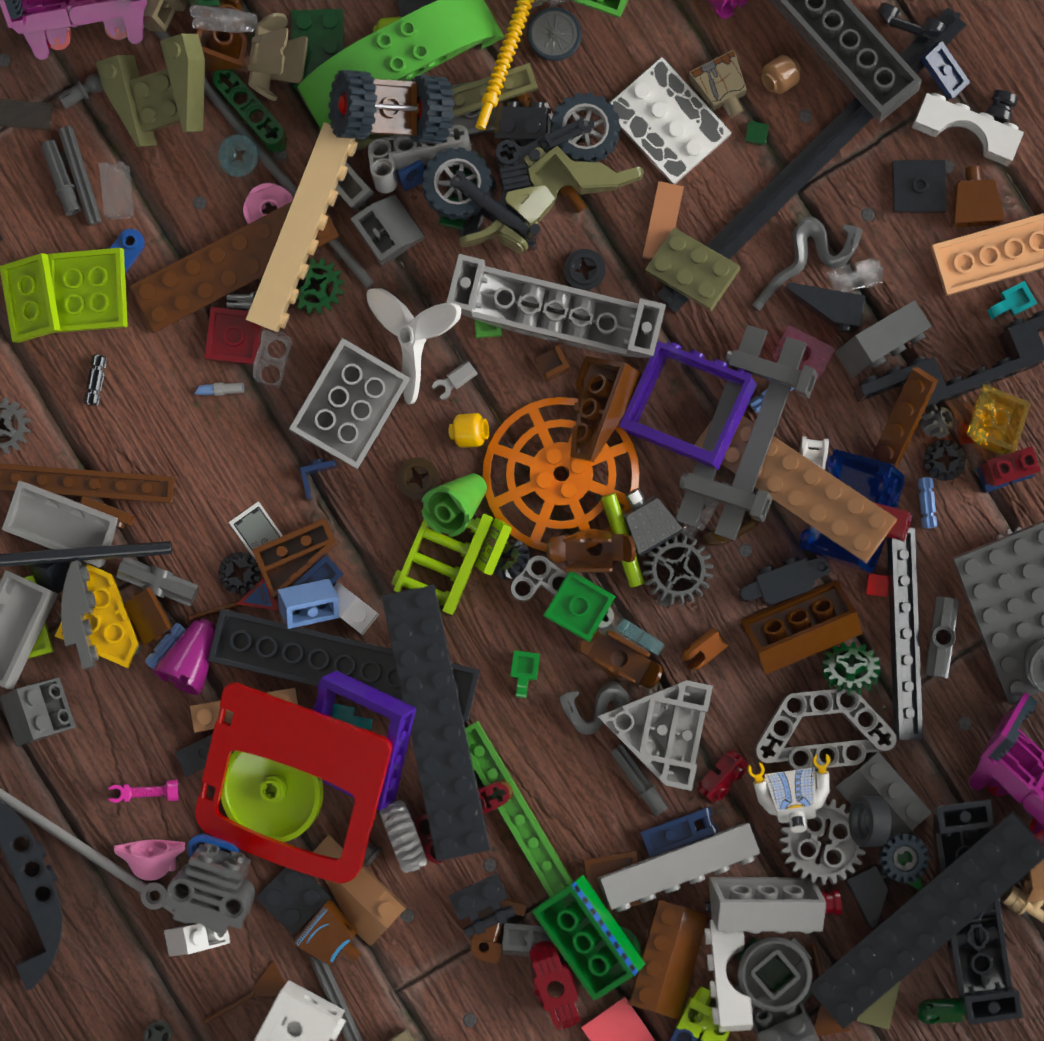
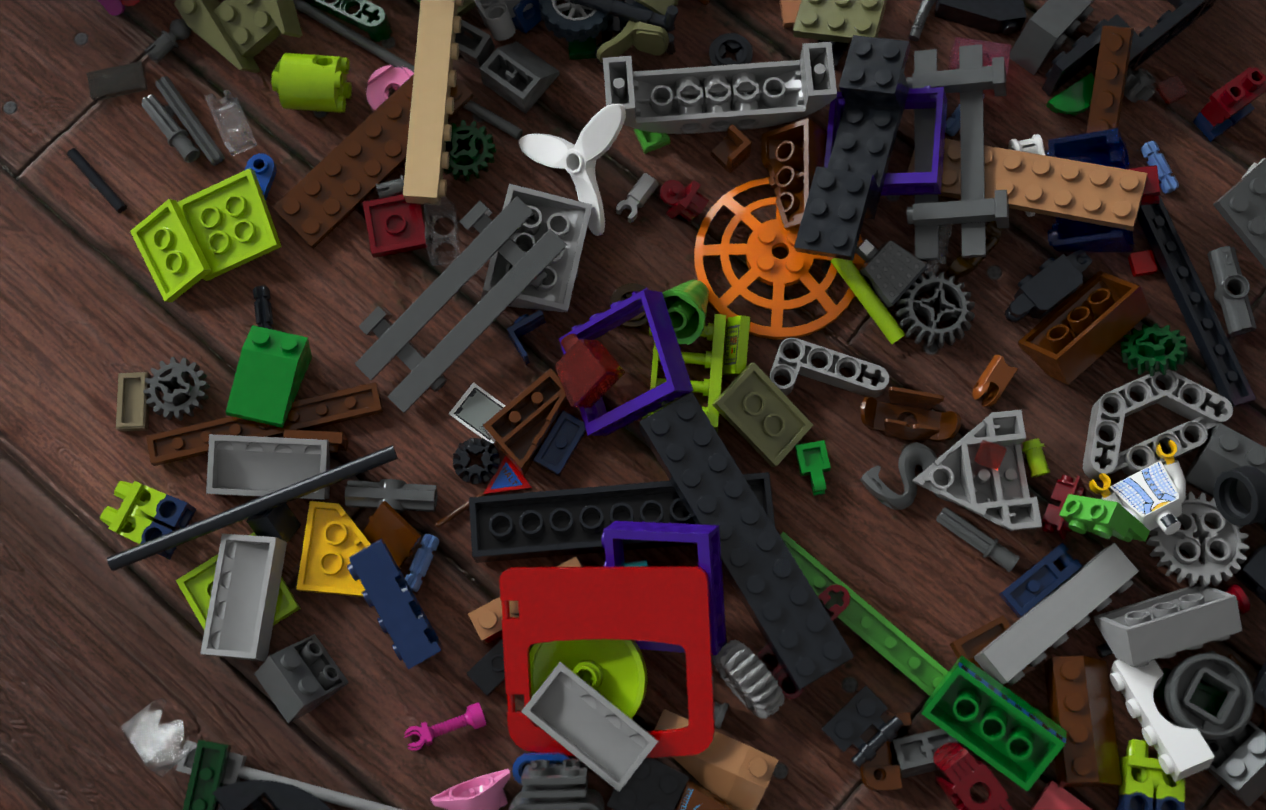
camera: 15 degrees left, 10 degrees down
(75, 604) = (310, 547): dark grey slope -> none
(83, 443) = (268, 376): none -> green slope
(132, 678) = (395, 604): none -> dark blue wedge
(187, 659) = (450, 566): magenta cone -> none
(199, 180) = (312, 82): none -> lime cylinder
(203, 445) = (396, 337): none -> dark grey fence
(220, 389) = (397, 281): light grey piece -> none
(227, 154) = (346, 39): clear light blue gear -> none
(260, 832) = (589, 726): none -> light grey slope
(308, 603) = (561, 461): medium blue brick -> none
(354, 531) = (586, 371): none -> clear red torso
(354, 534) = (678, 383): none -> dark purple window
(354, 610) = (608, 458): white slope -> none
(469, 430) = (669, 240): yellow head -> none
(491, 398) = (686, 200): none -> dark red hips
(494, 615) = (762, 414): none -> olive plate
(508, 569) = (770, 346): black gear -> none
(574, 548) = (863, 307): reddish brown piece -> none
(579, 606) = (849, 374): green tile -> none
(640, 636) = (923, 385): clear light blue beam -> none
(657, 413) = (859, 161): none -> black bracket
(671, 716) = (990, 454): none -> clear red piece
(715, 727) = (1035, 457): none -> lime pin
(742, 802) = (1102, 518): none -> bright green plate
(875, 414) = (1075, 98): none -> green tile
(937, 469) = (1156, 131): black gear -> none
(998, 420) = (1201, 61): clear yellow slope -> none

